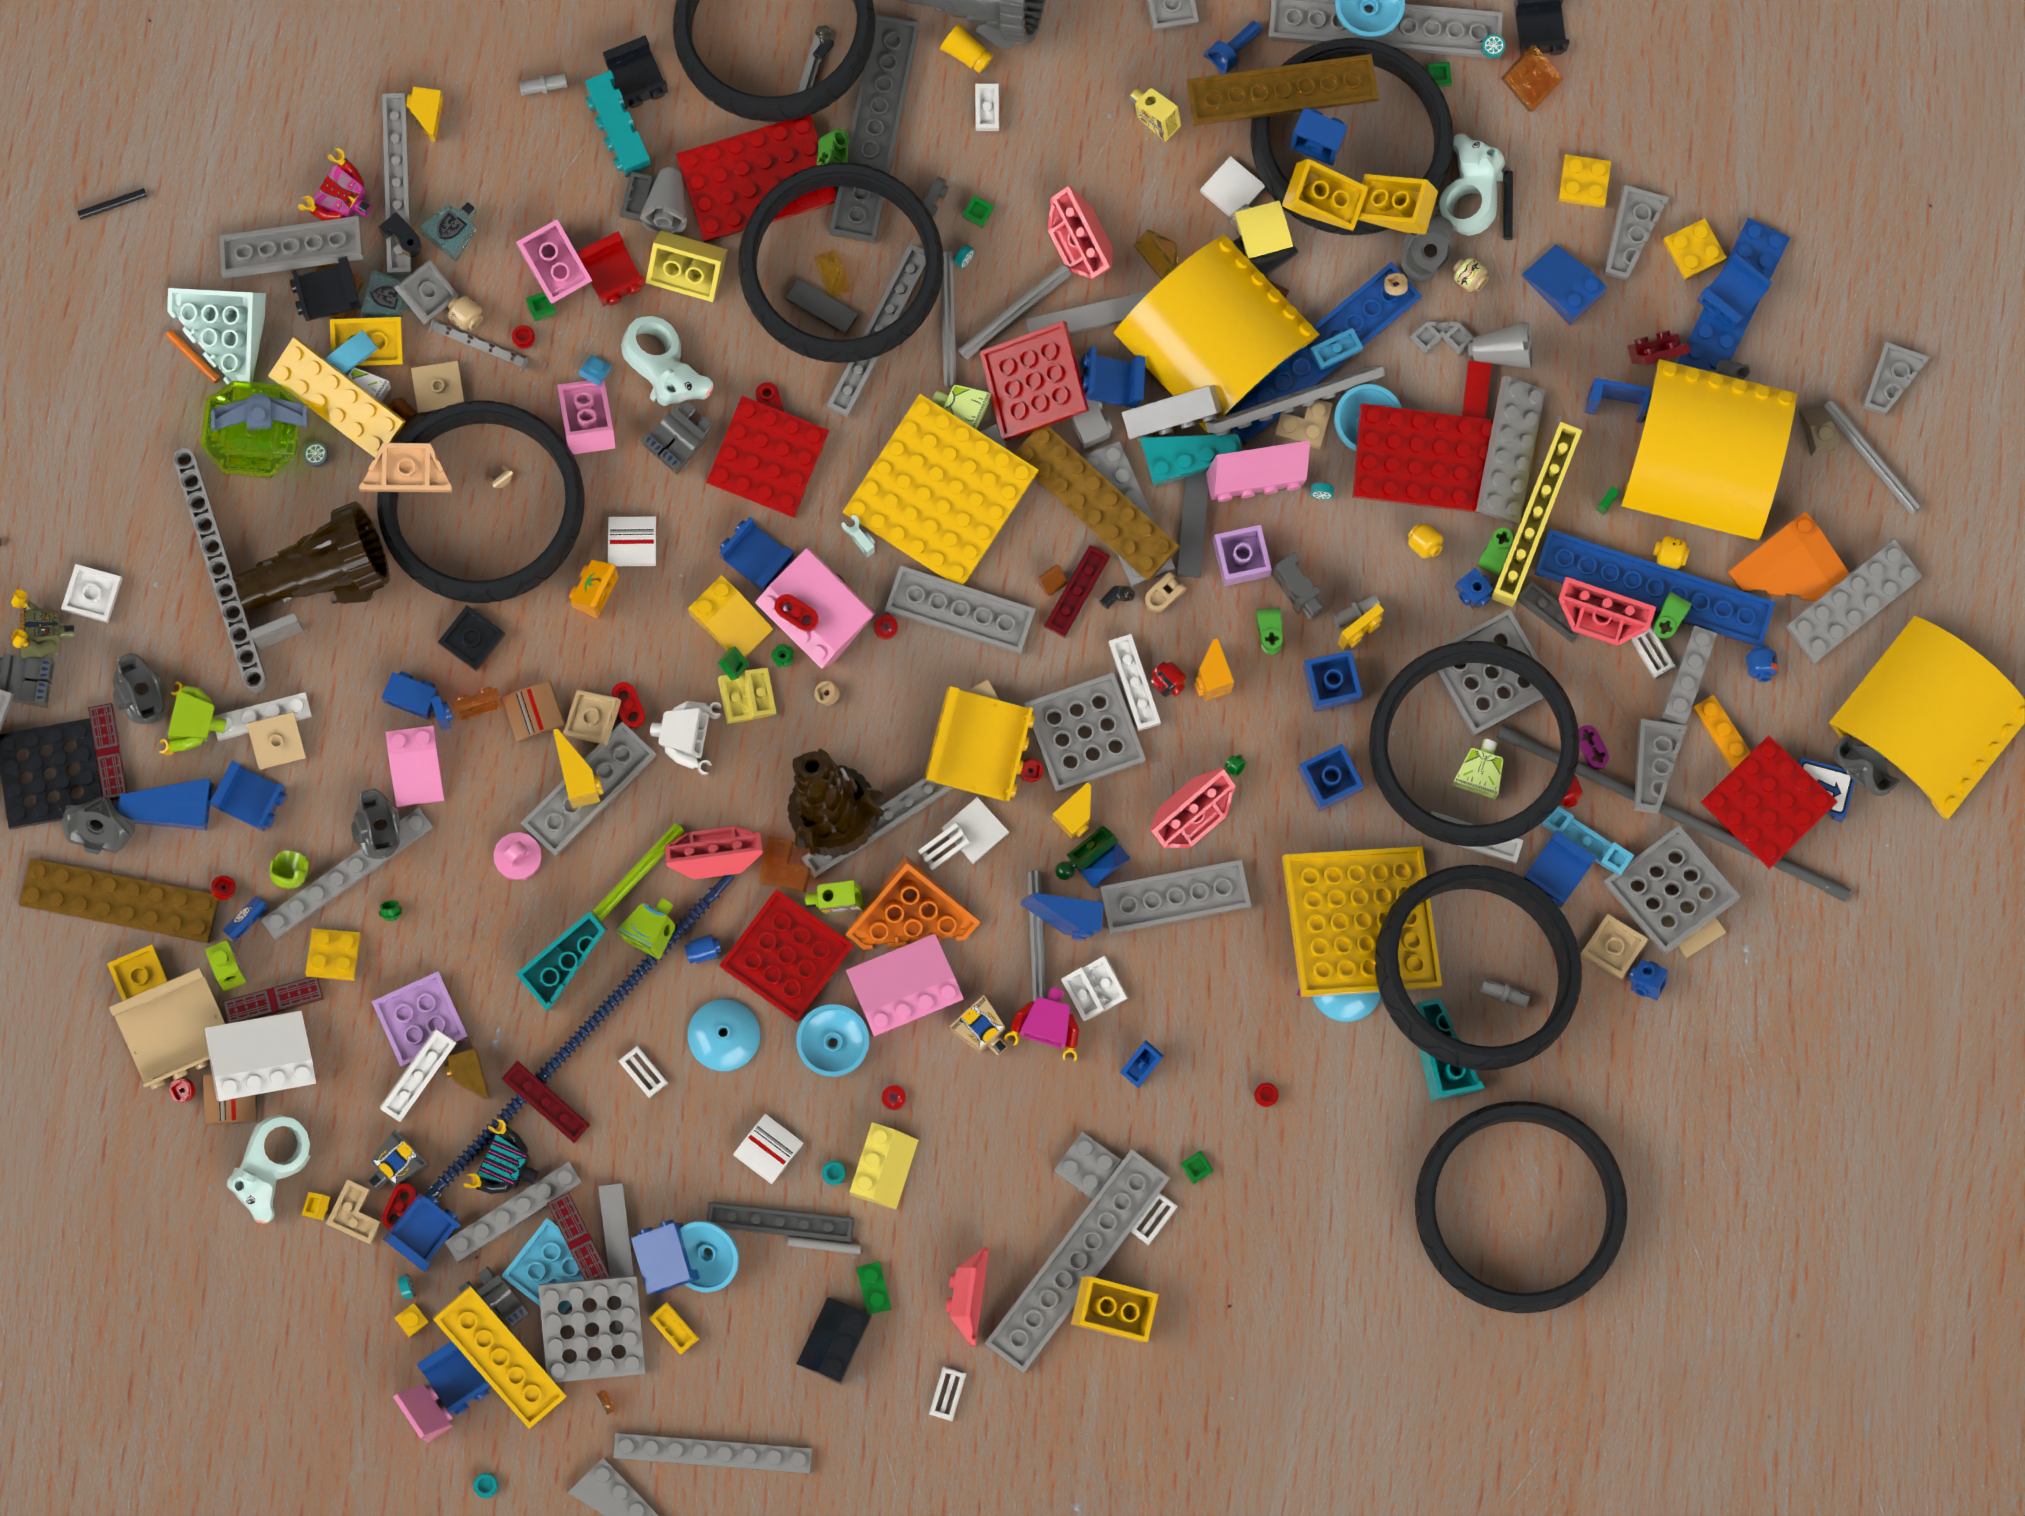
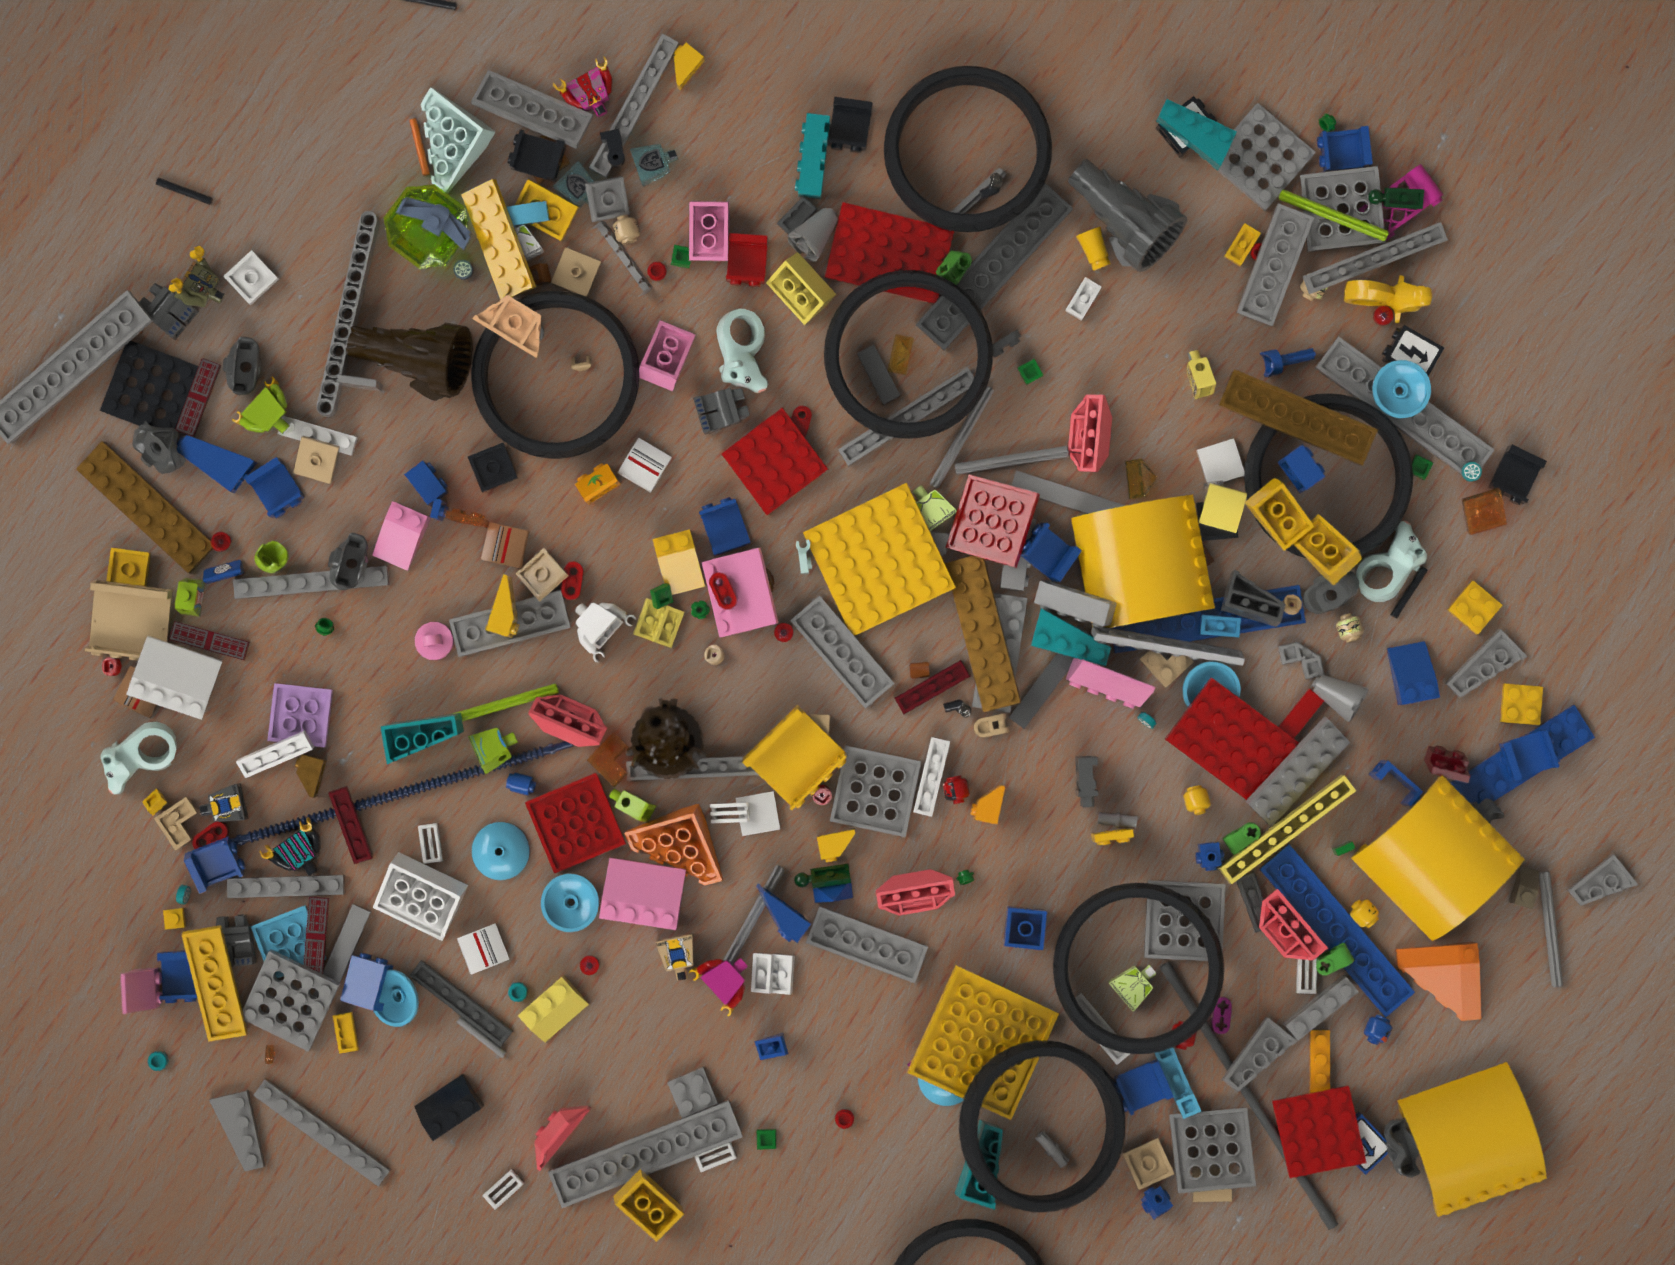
camera: 40 degrees right, 10 degrees up
(333, 954) = (268, 634): yellow plate -> none
(543, 84) = (780, 94): light grey pin -> none
(595, 370) = (692, 326): dark azure plate -> none
(666, 1134) = (420, 896): none -> white slope
(873, 1288) = (497, 1087): green plate -> none
(964, 256) = (1000, 398): teal tile -> none
(1242, 555) = (1061, 733): lavender brick -> none
(1270, 626) = (1051, 793): bright green piece -> none
(1332, 681) = (1069, 861): blue brick -> none
(1353, 304) = (1251, 602): none -> dark grey wedge
(1853, 601) = (1470, 1024): light grey plate -> none

